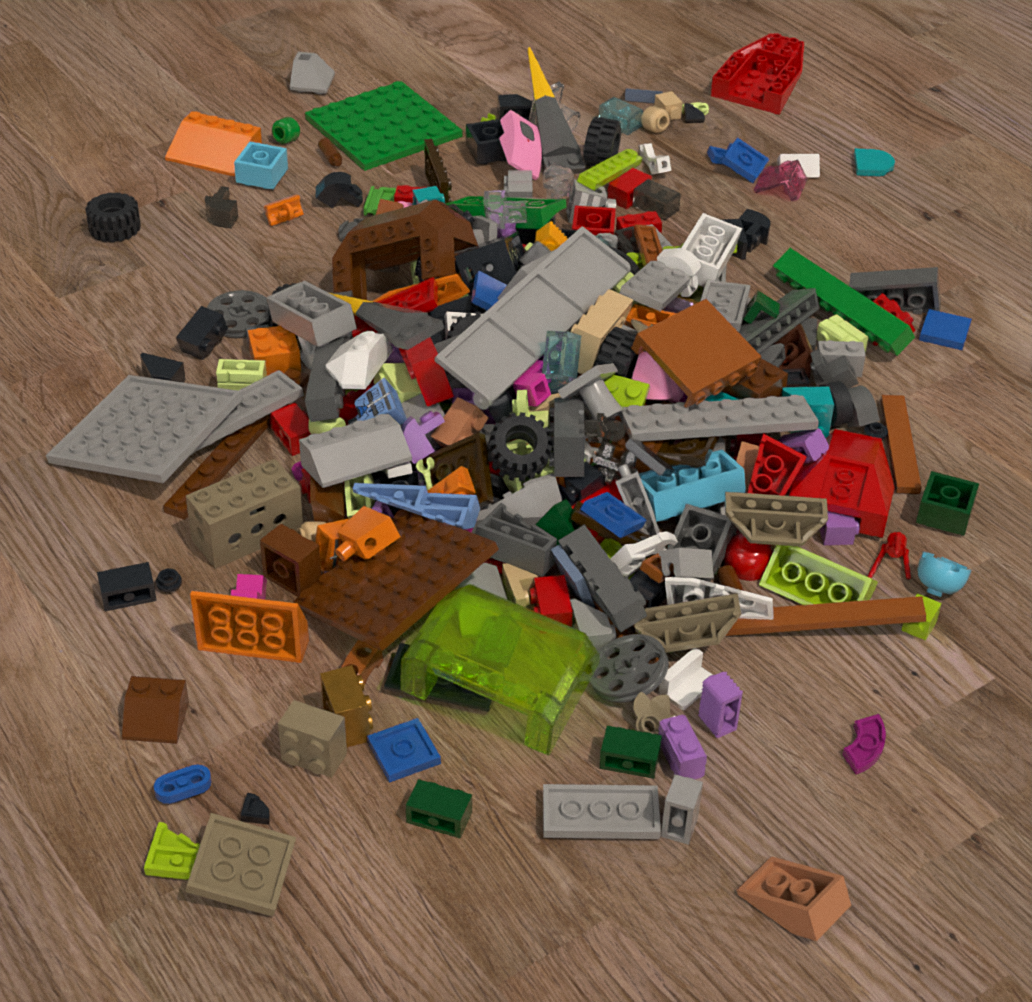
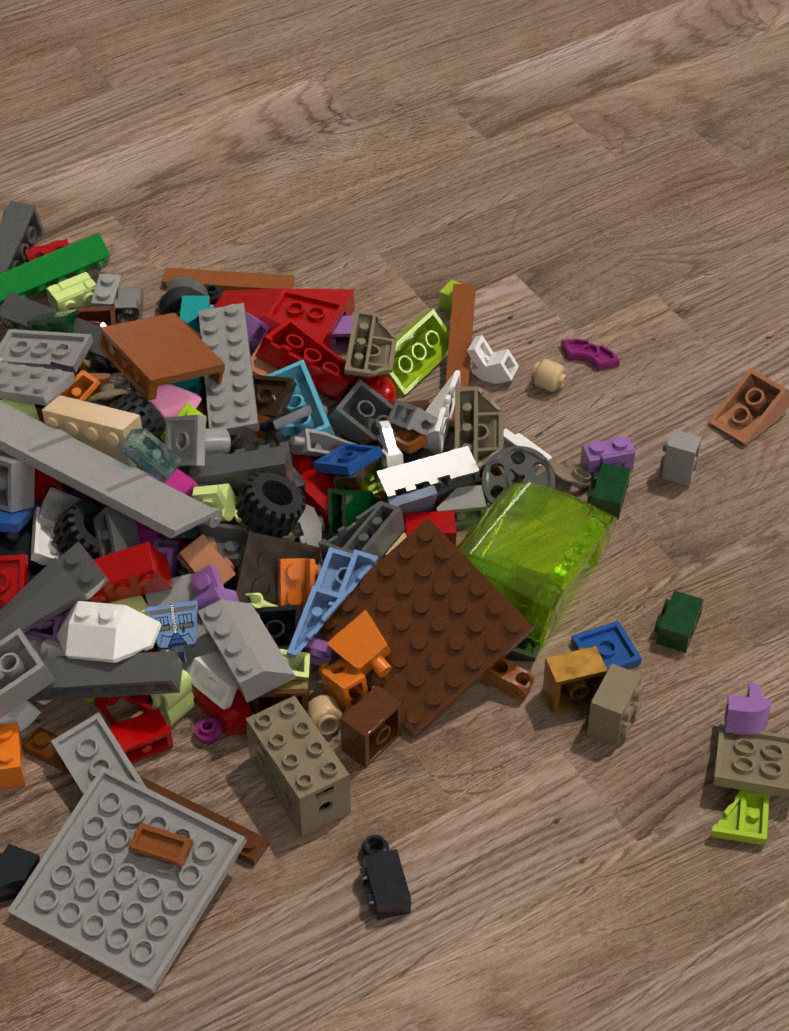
camera: 85 degrees left, 5 degrees up
(154, 709) = (568, 846): reddish brown slope -> none
(160, 431) = (161, 845): none -> dark orange tile
(182, 784) = (661, 819): blue plate -> none
(239, 373) = (42, 785): yellowish green brick -> none
(249, 626) = (466, 758): orange slope -> none
(250, 586) = (411, 770): dark pink brick -> none
(255, 810) = (682, 762): black tile -> none
(300, 858) = (748, 713): none -> medium lavender brick
(601, 811) = (674, 516): light grey plate -> none
(720, 704) = (566, 423): medium lavender brick -> none
(807, 696) = (548, 375): none -> tan head
(816, 642) = (490, 365): none -> white brick
(895, 548) = (368, 301): red plant -> none
(941, 574) = (413, 276): medium azure cylinder -> none
(945, 329) = (68, 226): blue tile -> none
(947, 503) = (325, 259): dark green brick -> none

